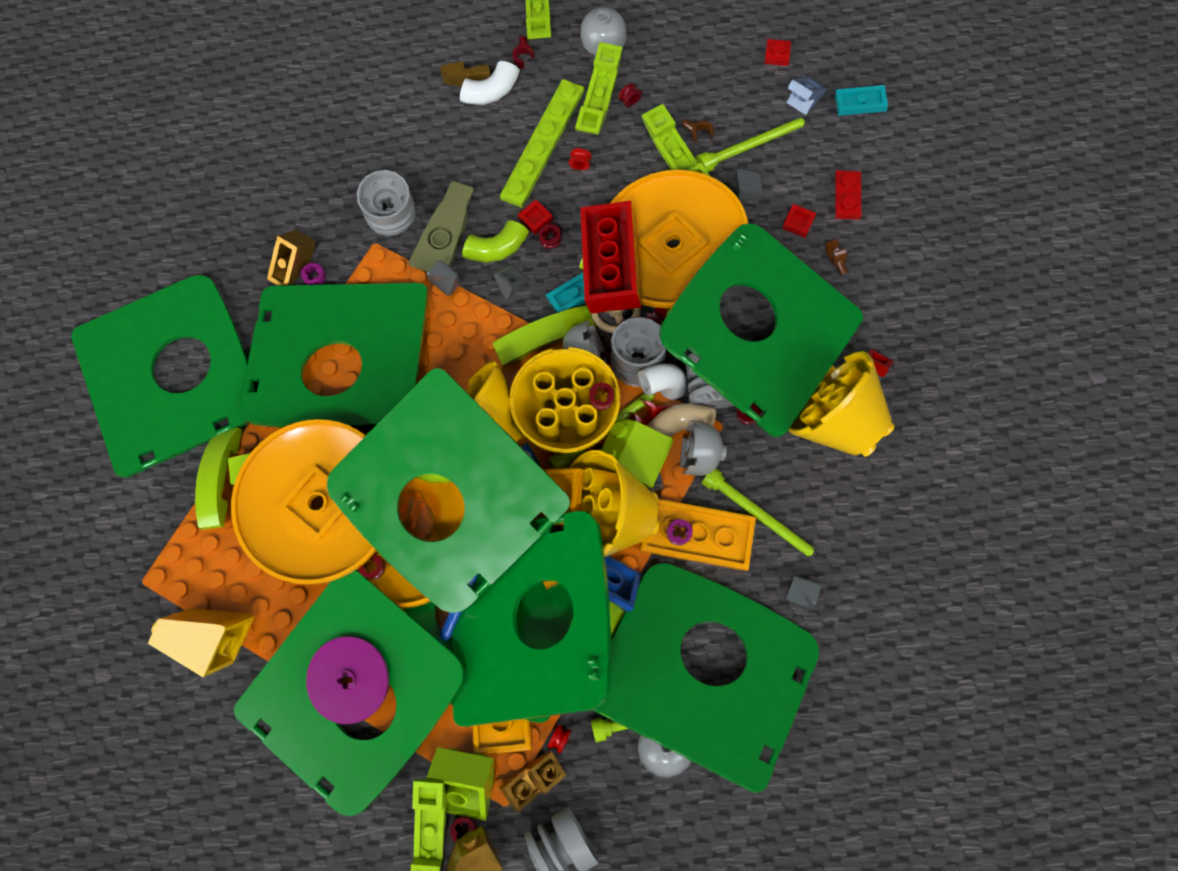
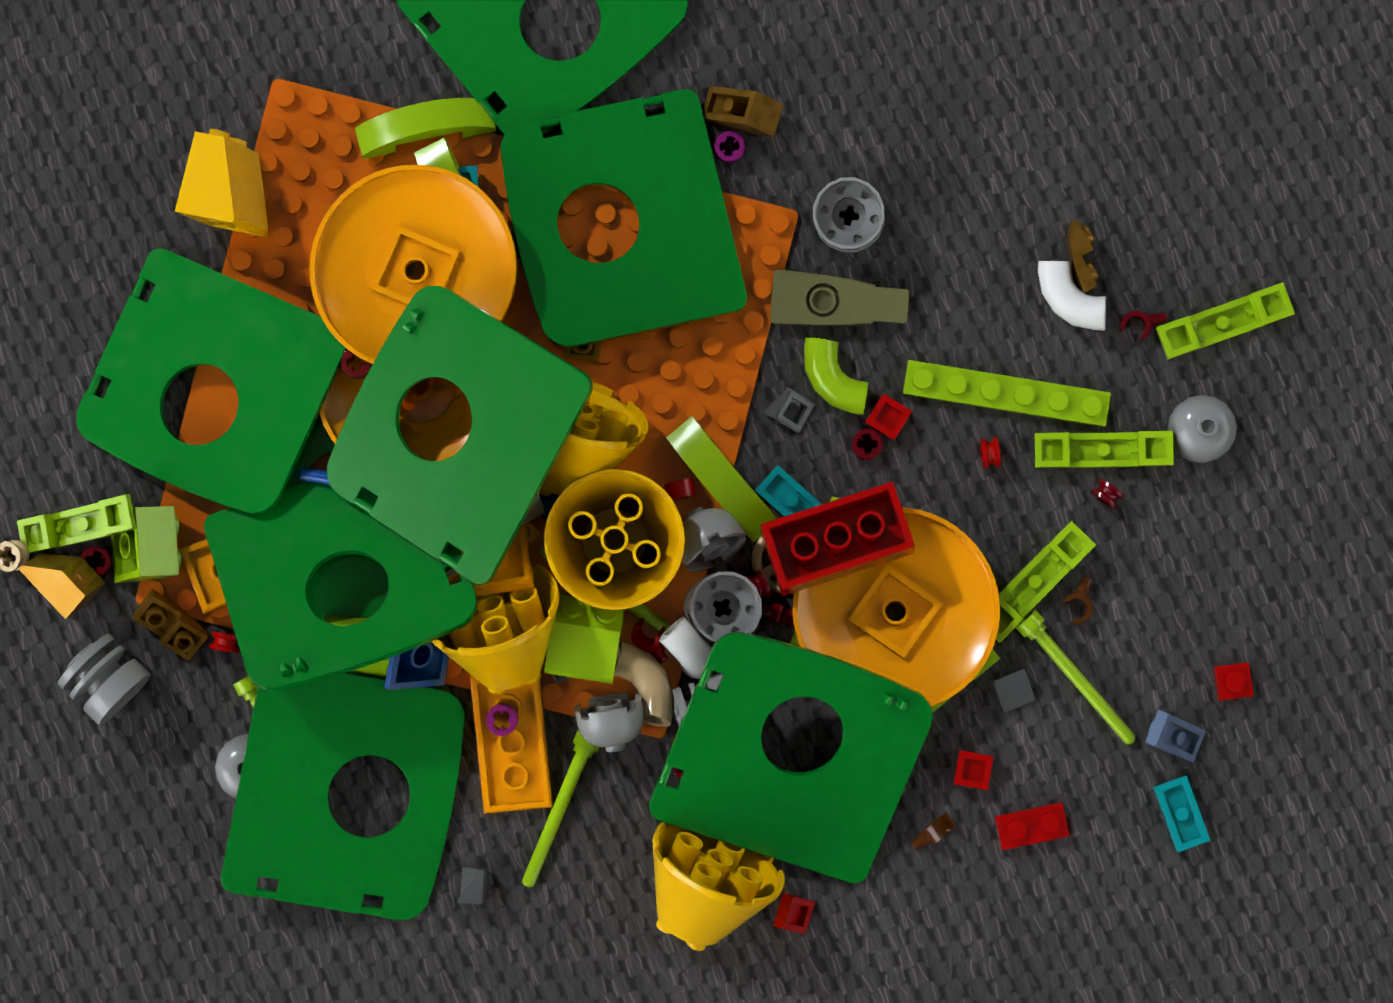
camera: 70 degrees right, 15 degrees up
(343, 701) = (197, 367): magenta piece -> none
(444, 278) = (762, 327): dark grey slope -> none
(593, 395) = (625, 573): dark red bush -> none

